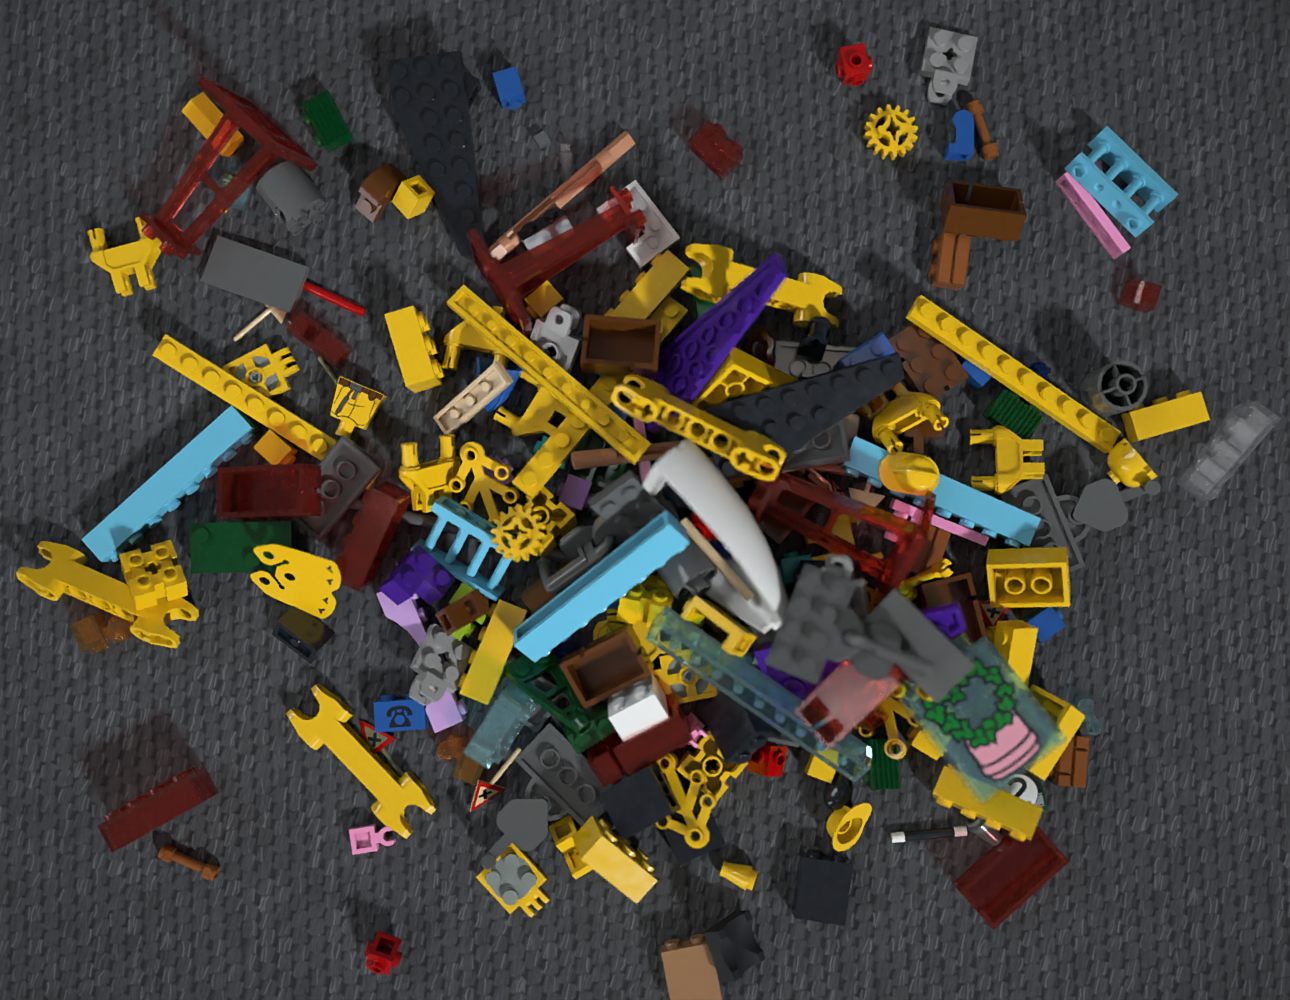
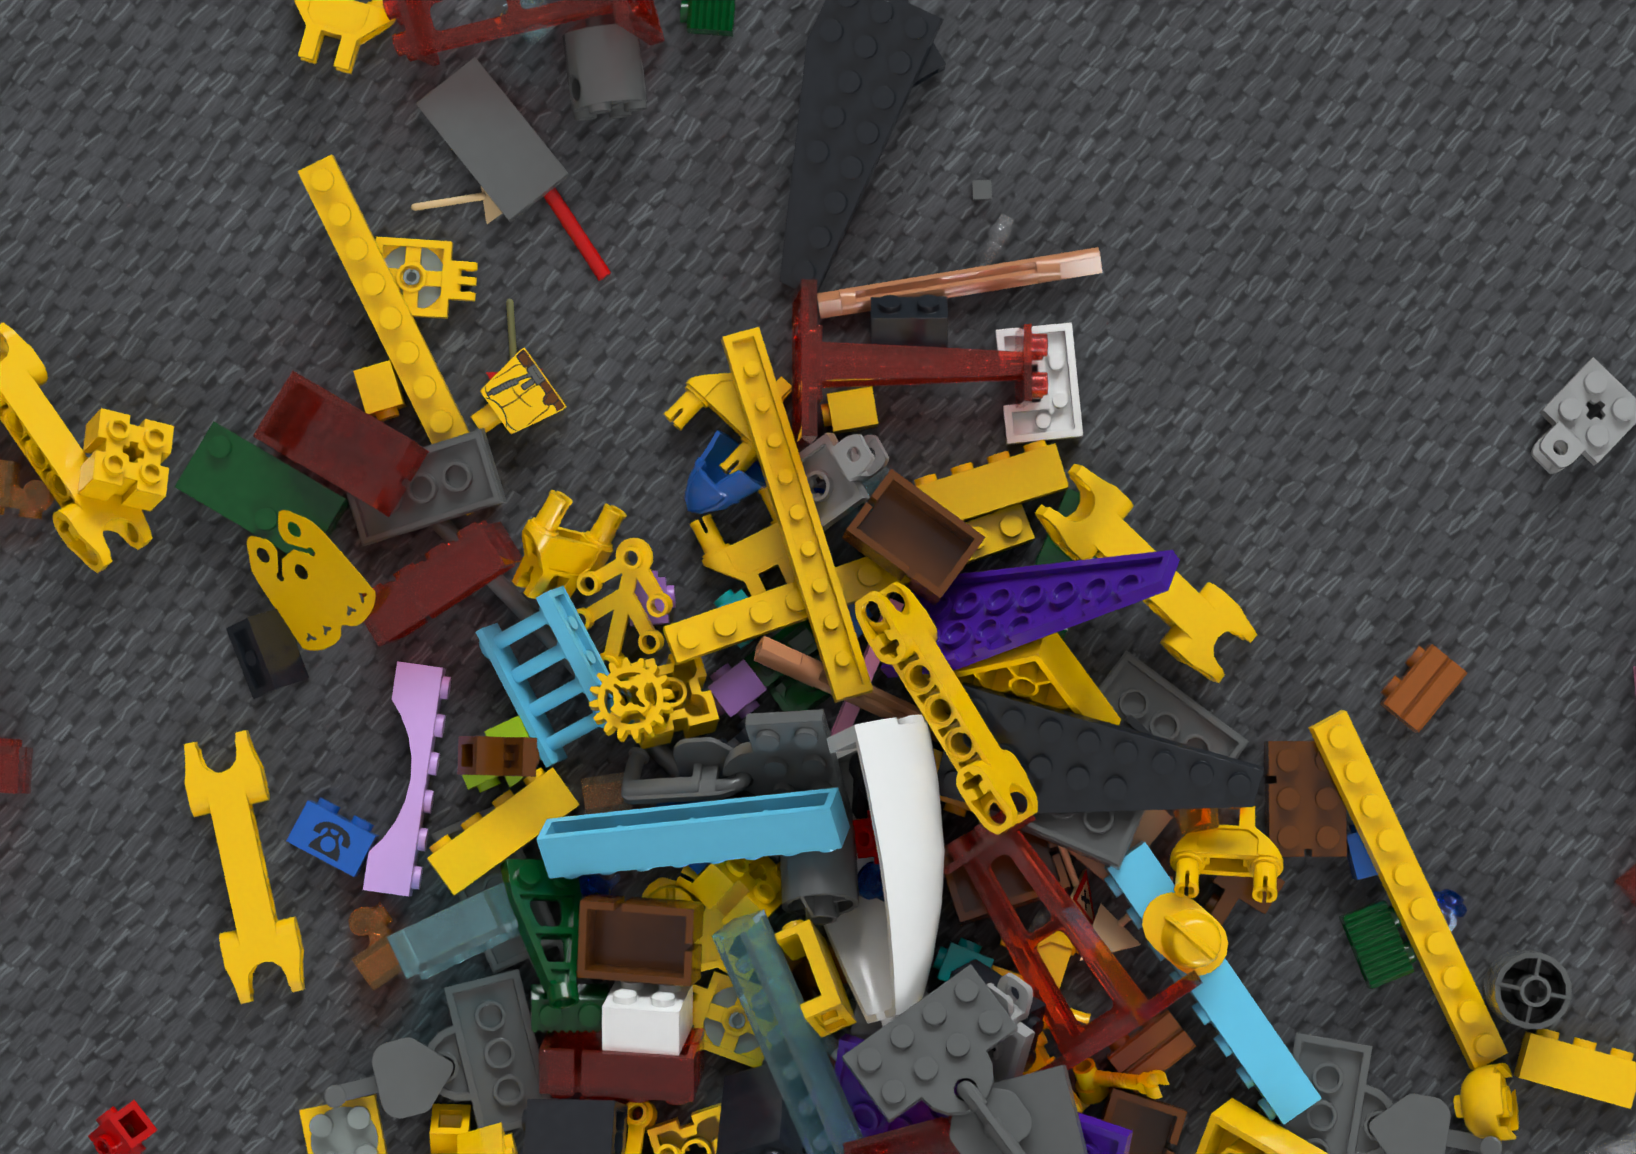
camera: 35 degrees right, 0 degrees up
(170, 484) = (214, 351): medium azure brick -> none
(318, 339) = (524, 277): clear red brick -> none
(367, 838) = (189, 972): bright pink plate -> none
(378, 191) = (725, 131): reddish brown brick -> none
(378, 742) = (278, 855): piece -> none
(413, 196) = (763, 166): yellow brick -> none
(414, 349) = (643, 371): yellow brick -> none
(418, 574) = (466, 670): dark purple brick -> none
(434, 676) = (408, 817): light grey plate -> none
(473, 398) = (679, 485): tan tile -> none
(487, 790) = (382, 1007): piece -> none
(509, 88) = (980, 98): blue brick -> none
(696, 728) = (705, 1095): bright pink plate -> none
(716, 149) = (1203, 347): clear red brick -> none
(718, 561) = (865, 891): tan bar -> none
(761, 345) = (1099, 647): reddish brown arm -> none
(814, 341) = (1175, 681): black piece -> none
(853, 64) = (1465, 337): red brick -> none
(871, 349) = (1235, 742): blue brick -> none
(898, 124) = (1467, 473): yellow gear -> none
(904, 510) = (1156, 978): bright pink piece -> none
(962, 138) = (1549, 521): blue leg -> none
(989, 149) = (1583, 505): dark orange bar -> none
(990, 211) = (1513, 658): reddish brown piece -> none
(1008, 459) = (1333, 997): yellow connector -> none

